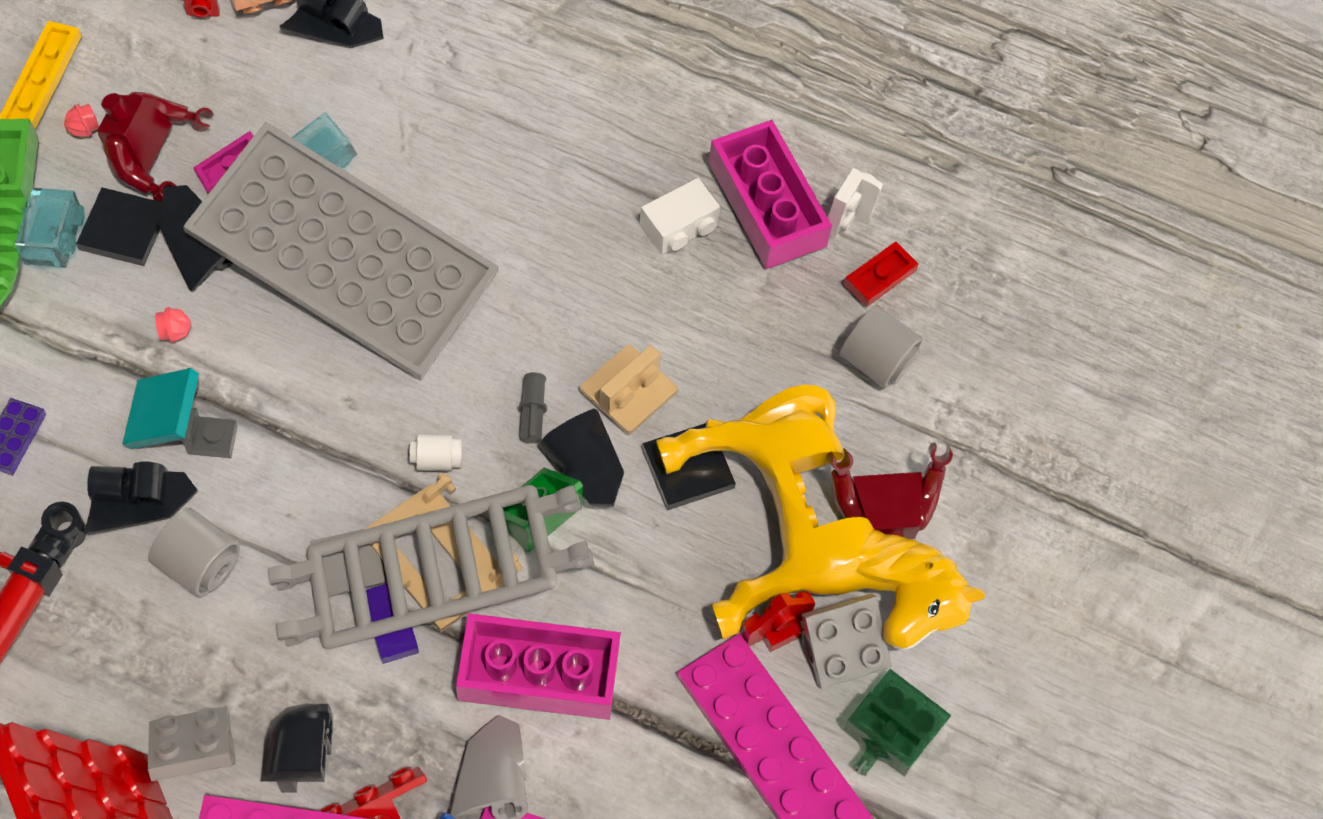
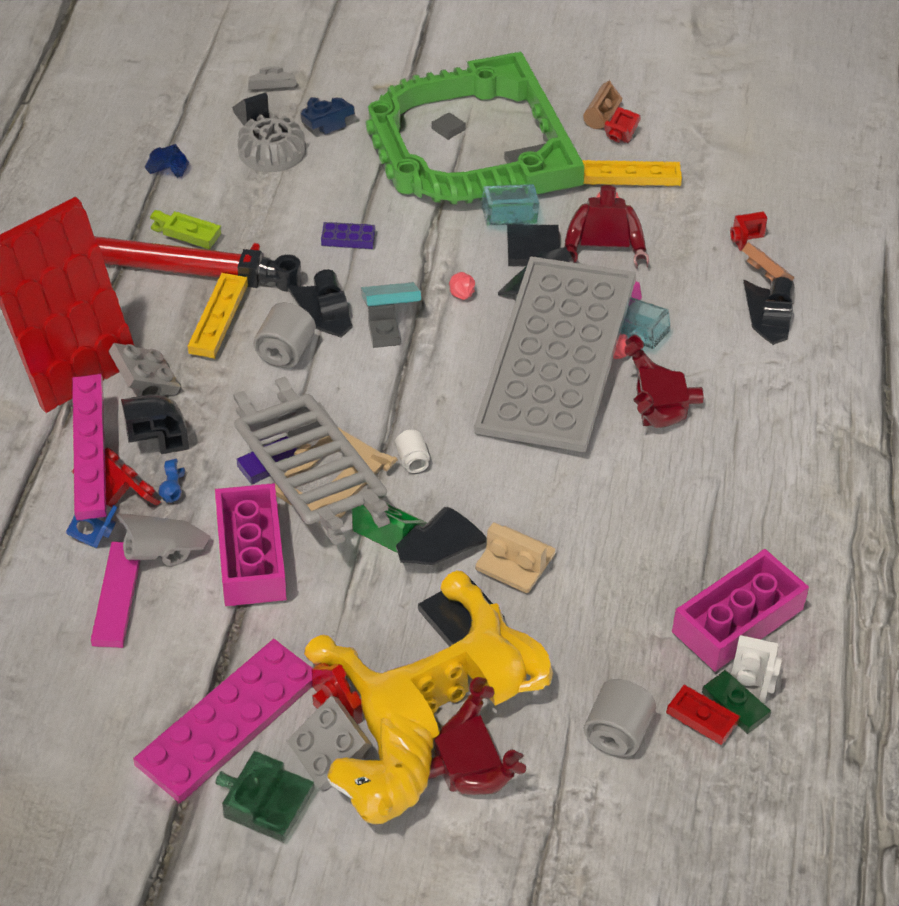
camera: 80 degrees right, 15 degrees down
(108, 632) = (217, 315): none -> yellow plate
(408, 749) = (170, 489): none -> blue arm
(434, 167) = (661, 392): none -> dark red torso
(532, 407) = (476, 501): dark grey axle -> none
(680, 216) = (691, 556): white brick -> none
(866, 239) = (735, 697): none -> dark green plate

